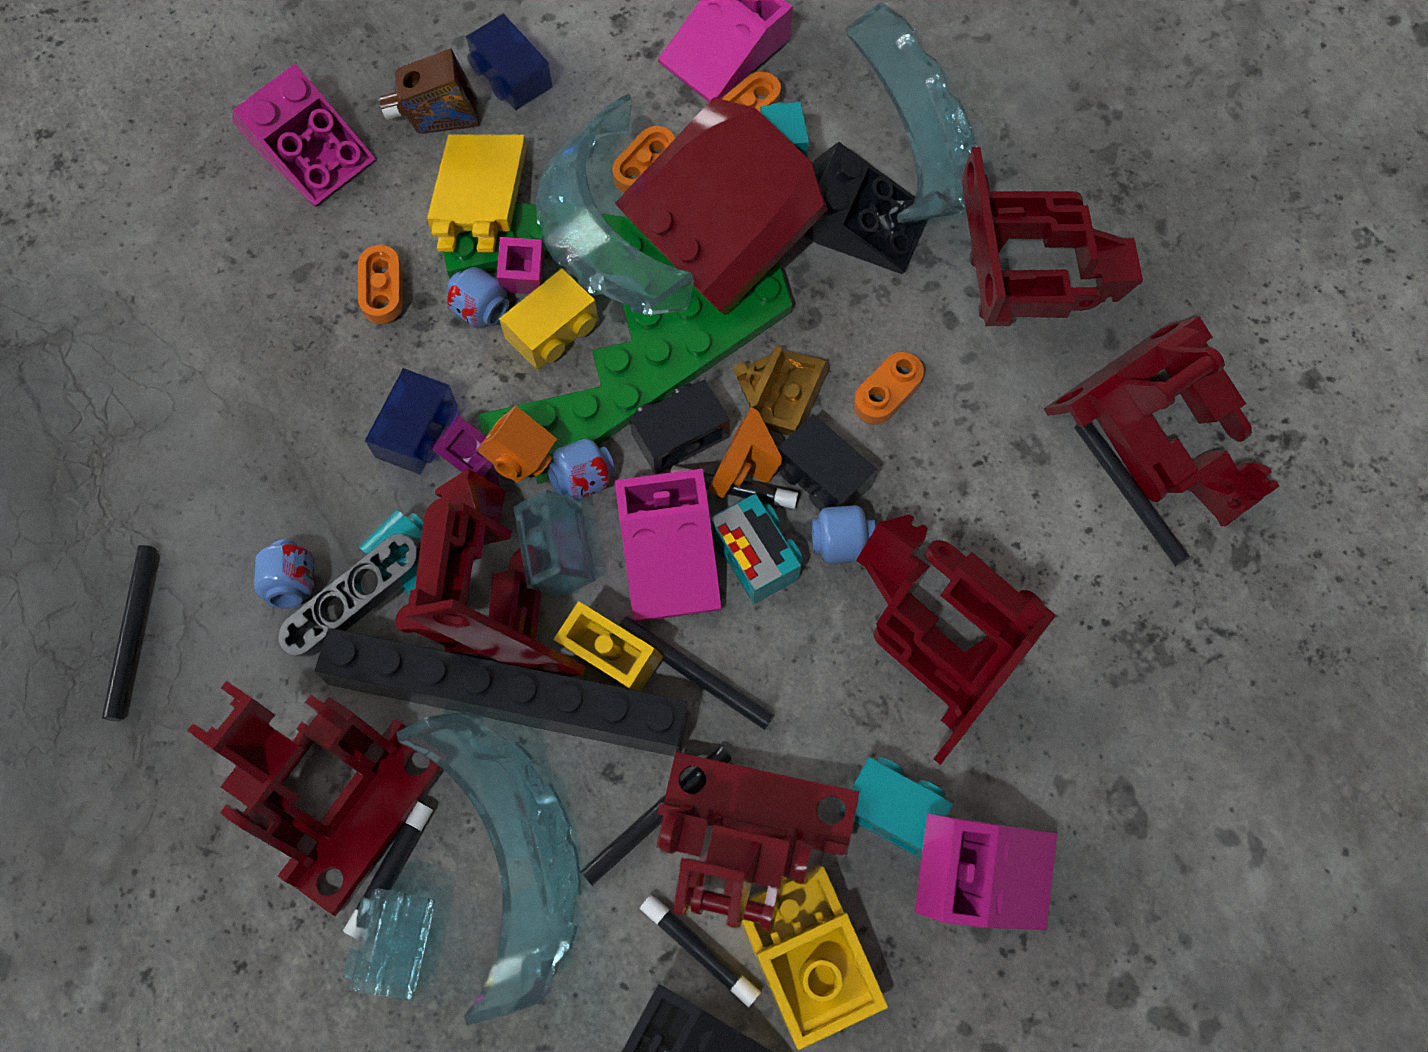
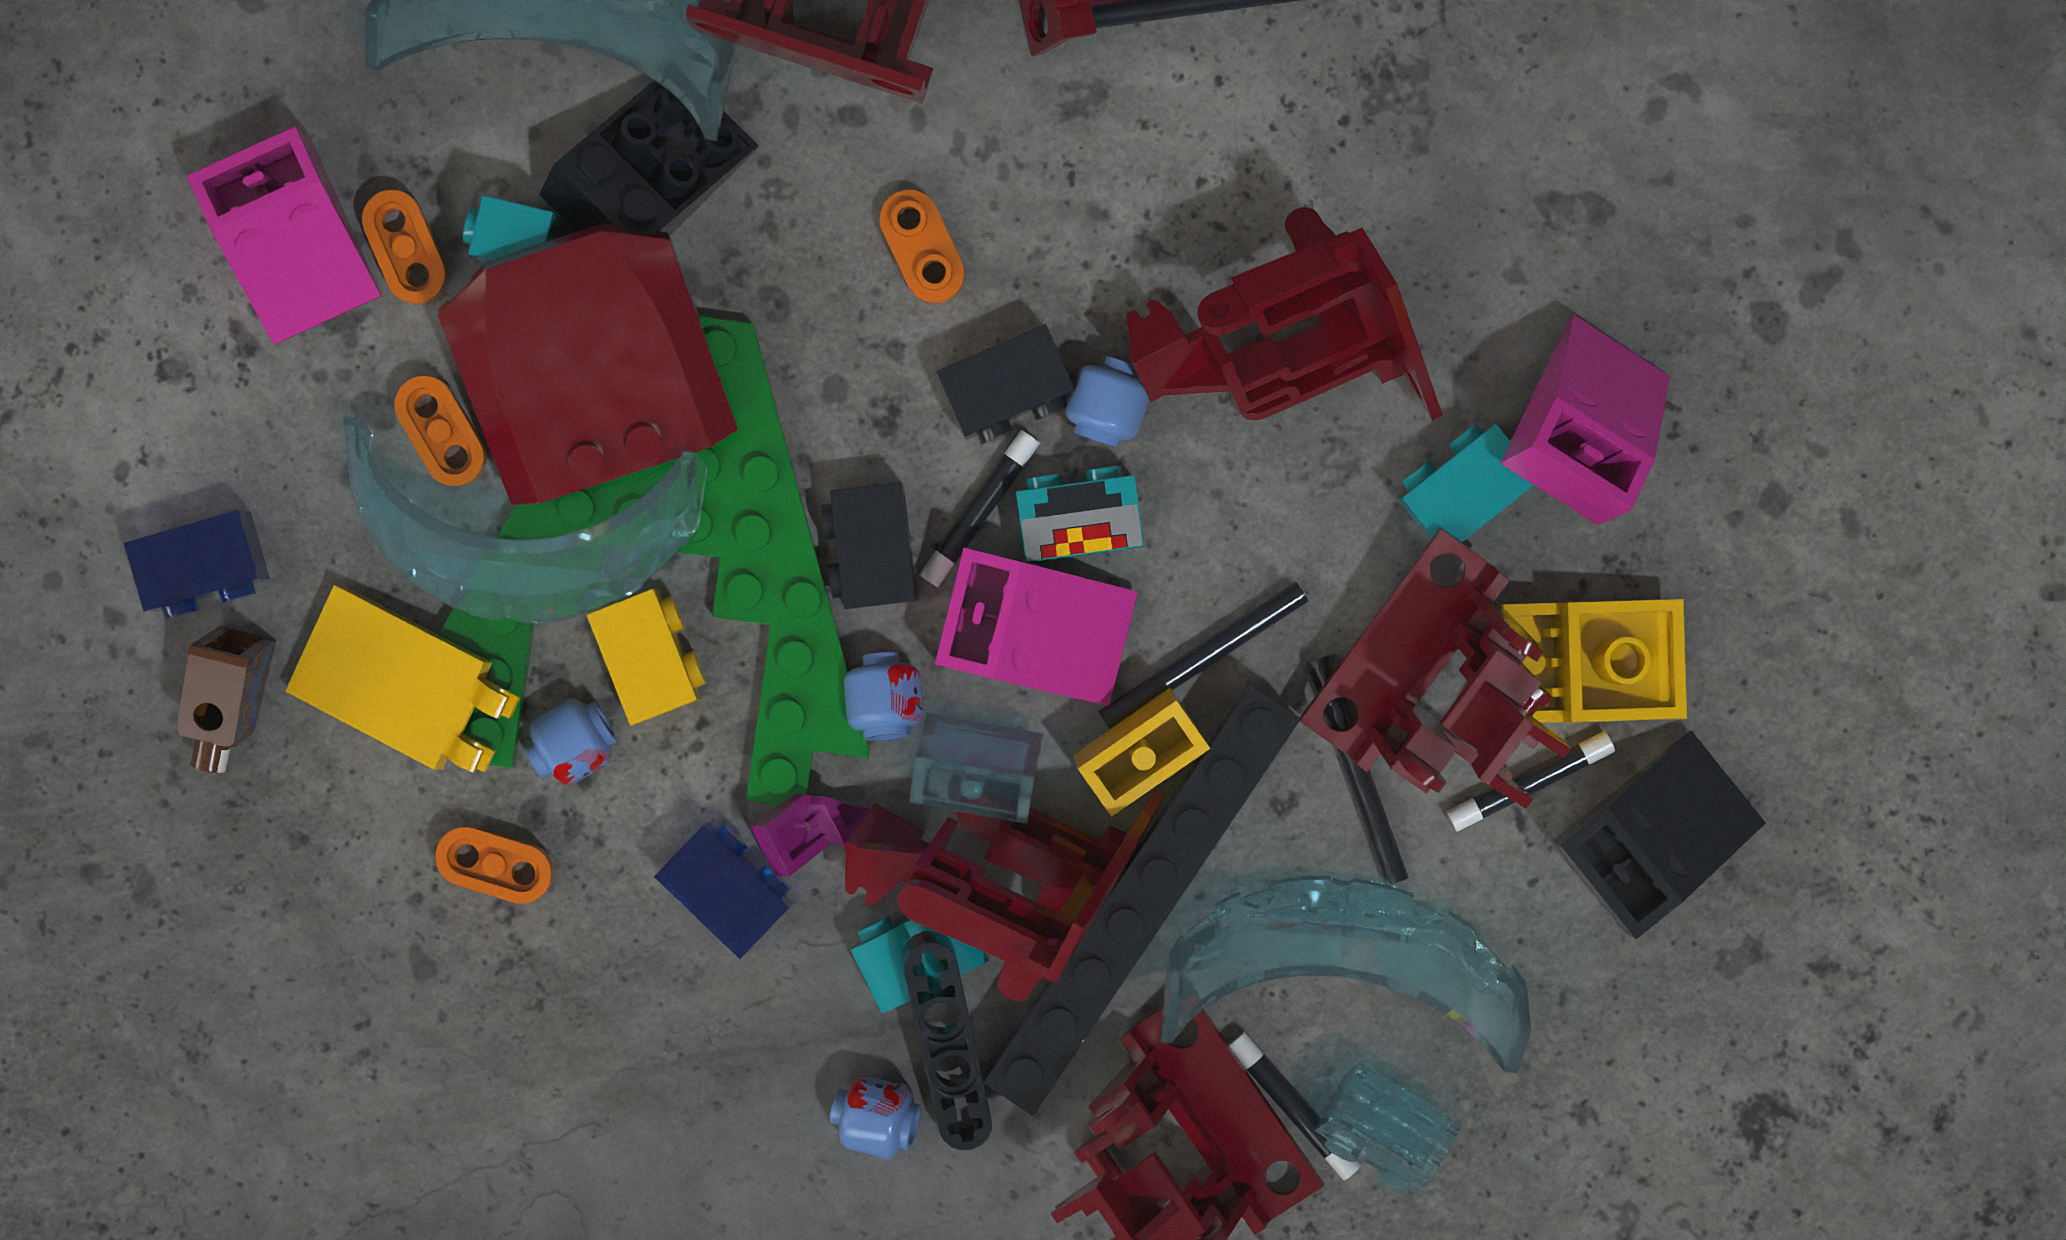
camera: 70 degrees left, 20 degrees up
(301, 135) = (209, 896): dark pink slope -> none
(517, 446) = (832, 768): orange brick -> none
(520, 264) = (560, 667): dark pink brick -> none
(749, 453) = (945, 475): orange slope -> none
(782, 387) = (867, 388): pearl gold slope -> none

